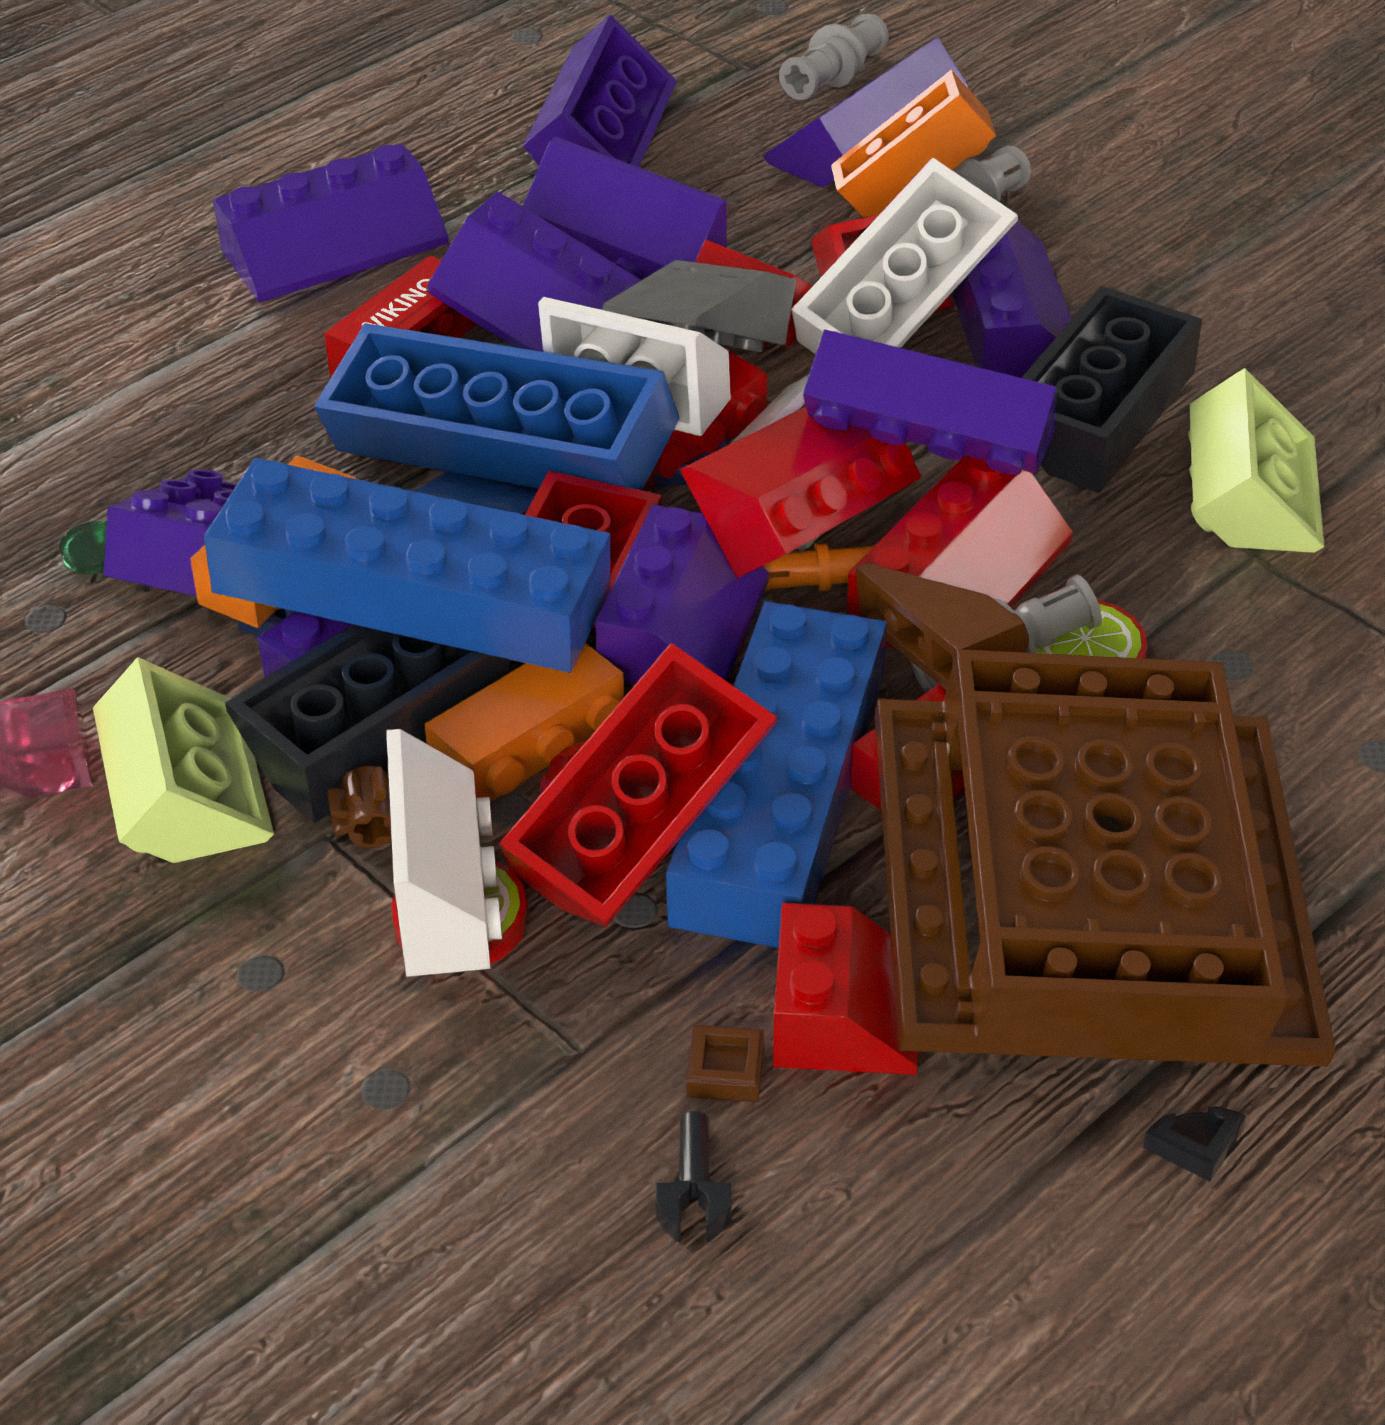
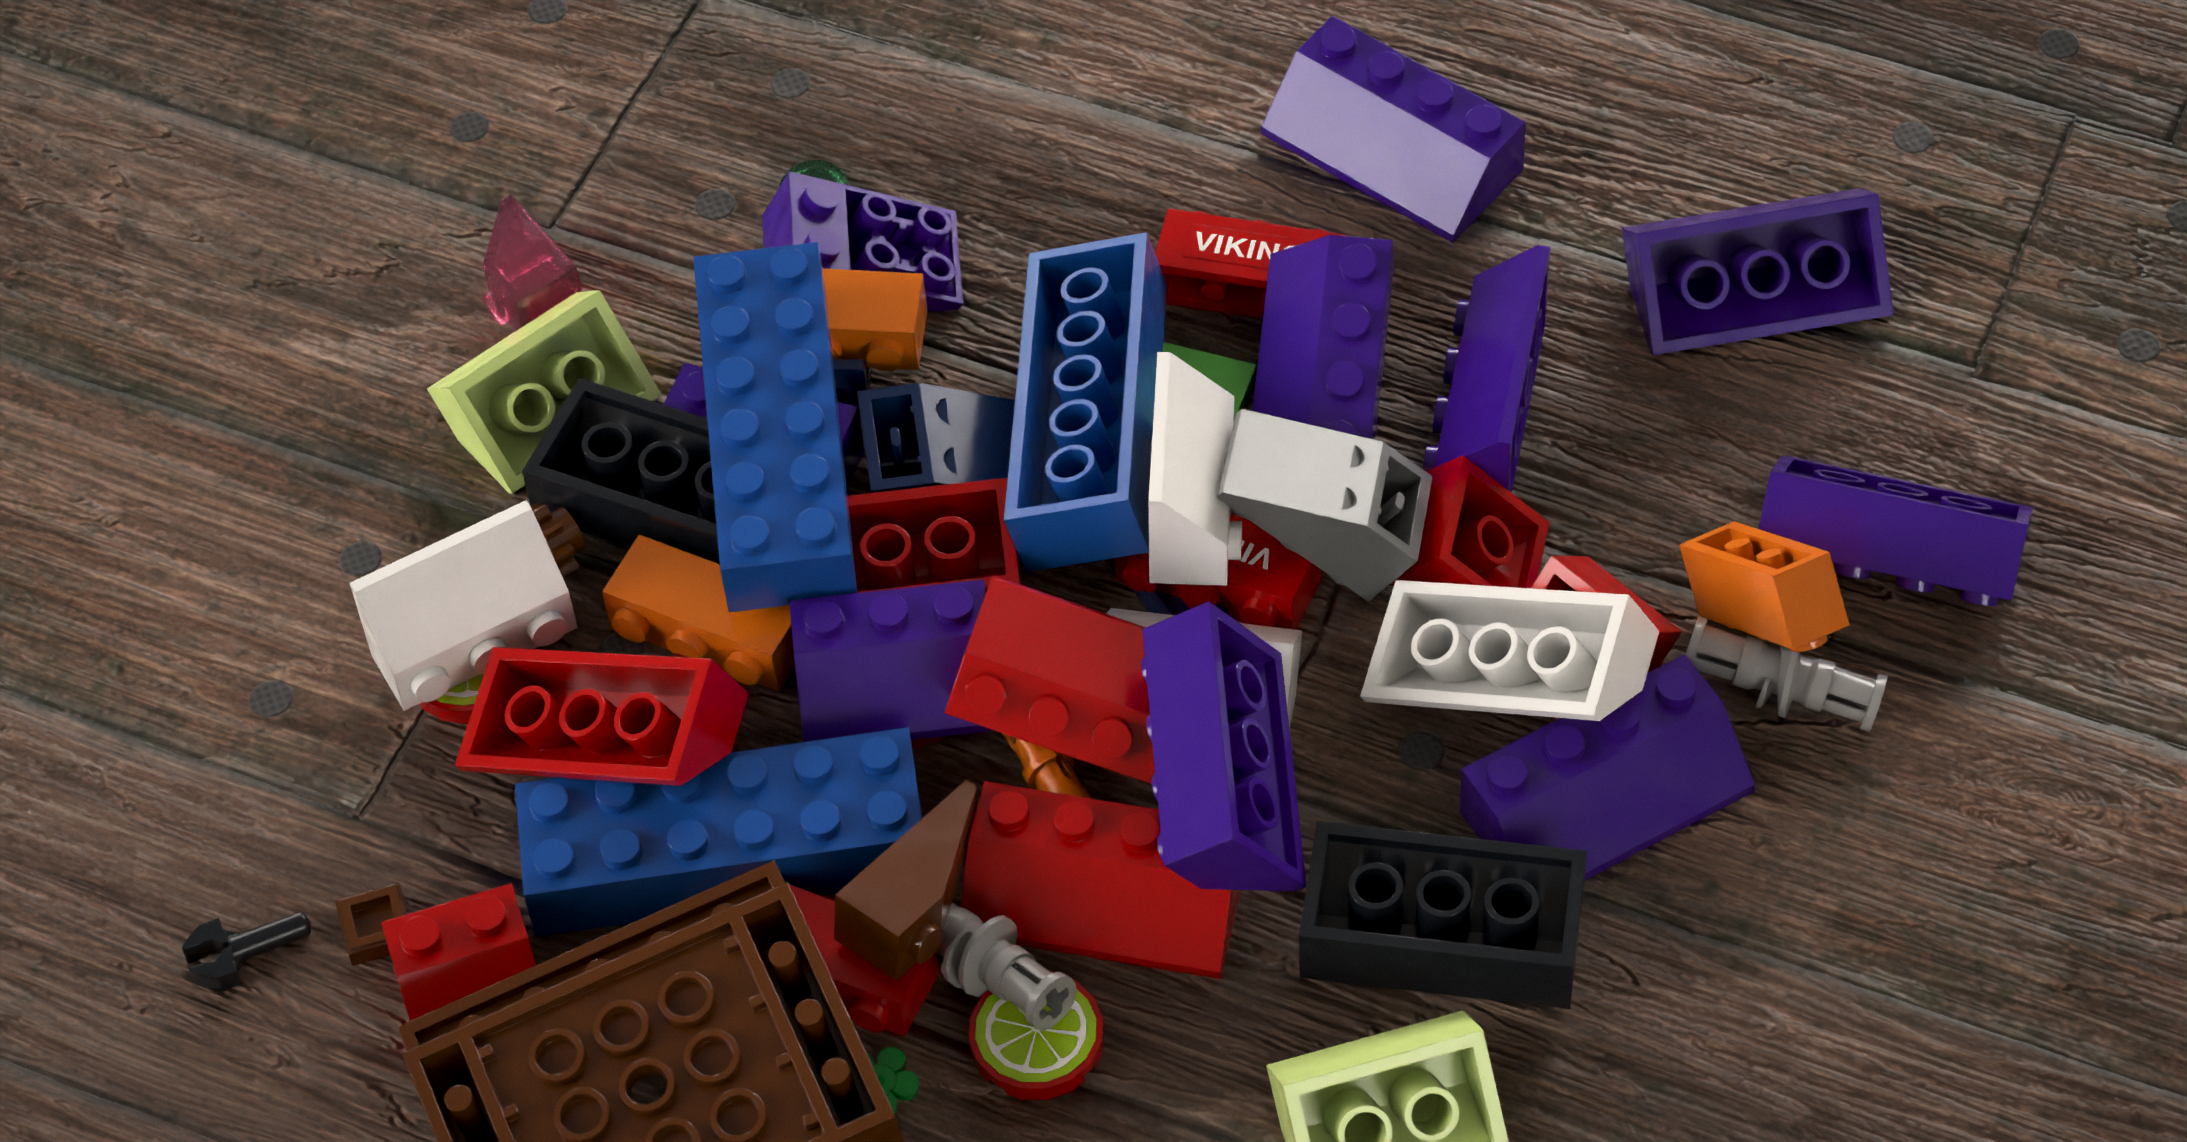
camera: 70 degrees right, 10 degrees up
(833, 56) = (2006, 443): light grey piece -> none

